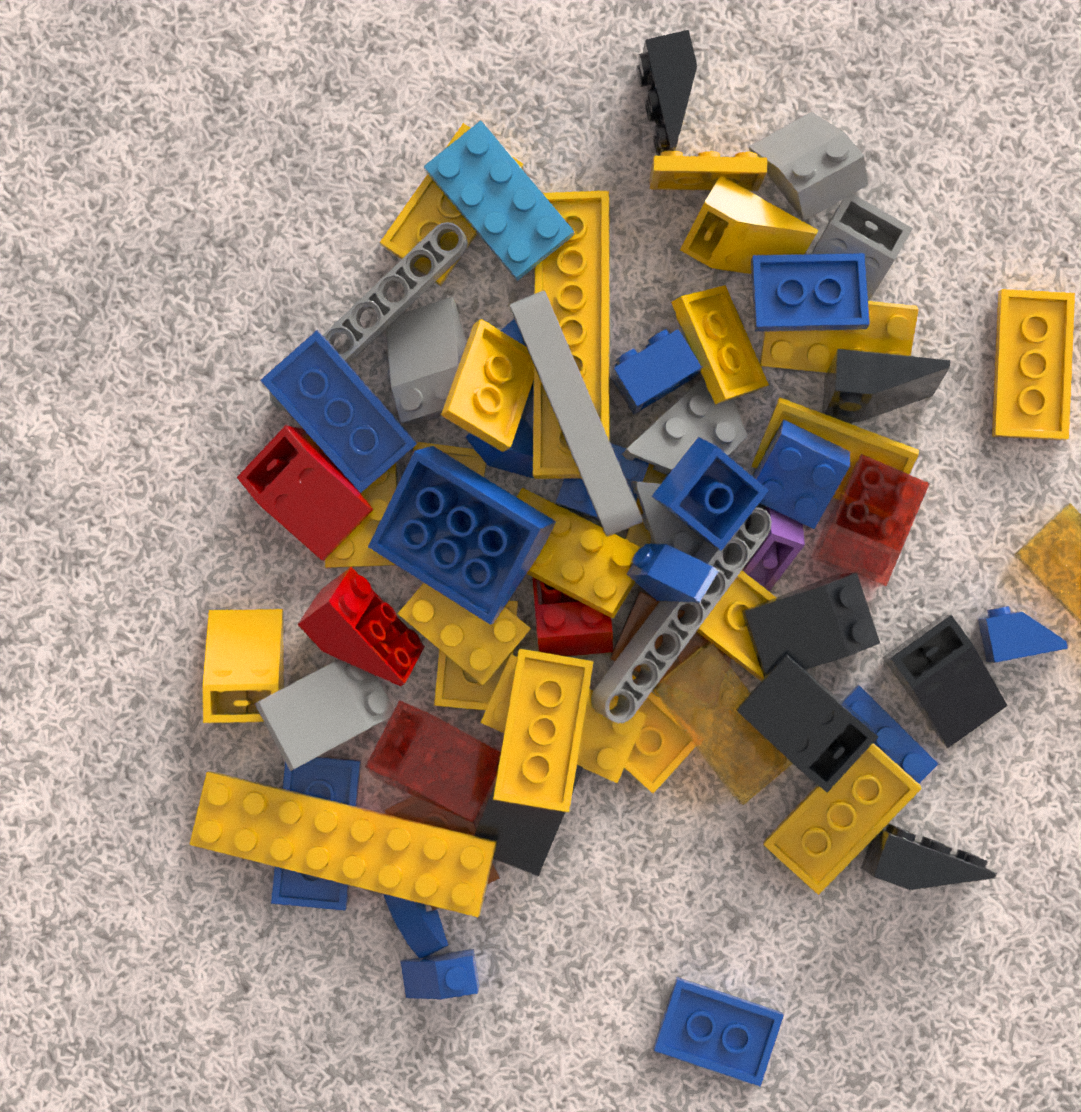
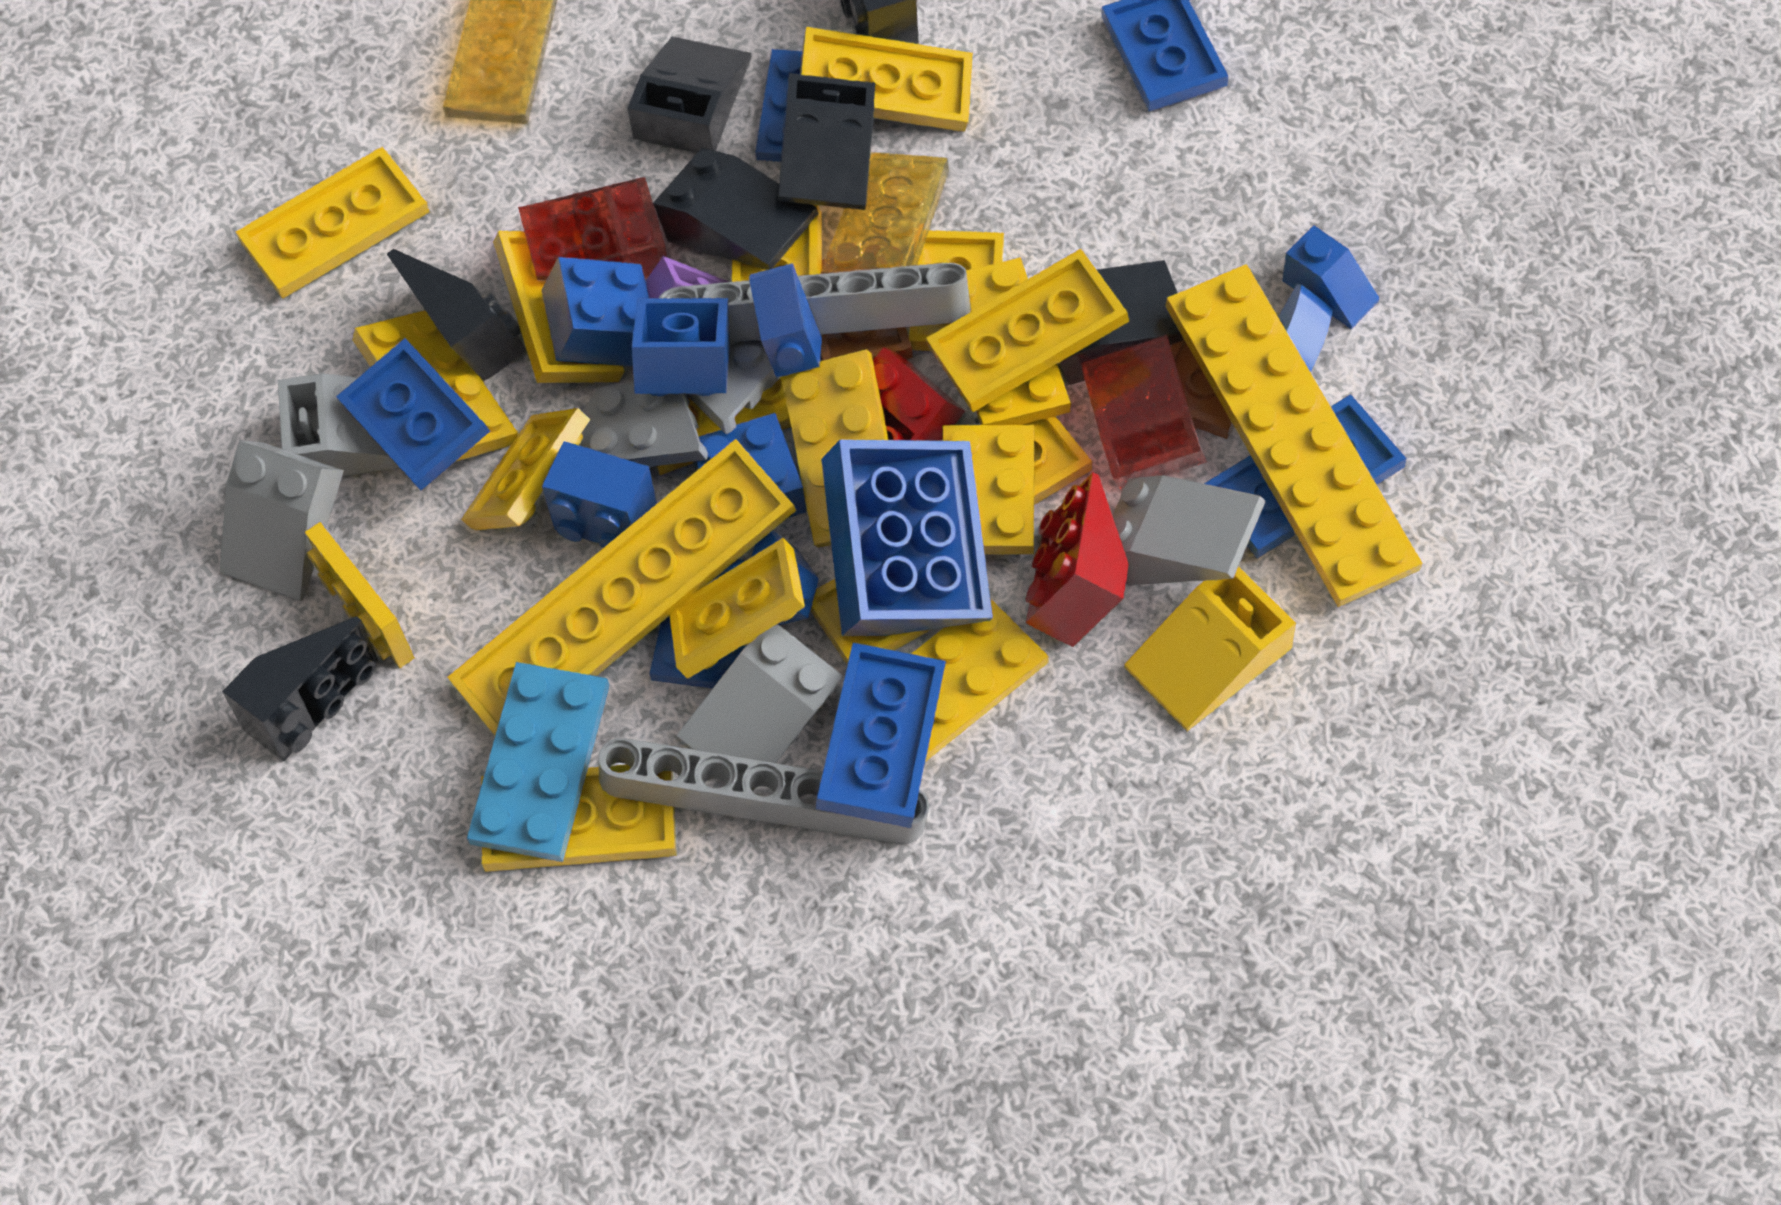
camera: 120 degrees left, 25 degrees down
(305, 491) = (988, 712): red slope -> none
(576, 413) = (698, 508): light grey beam -> none
(740, 225) = (395, 526): yellow slope -> none
(1015, 636) = (604, 67): blue slope -> none

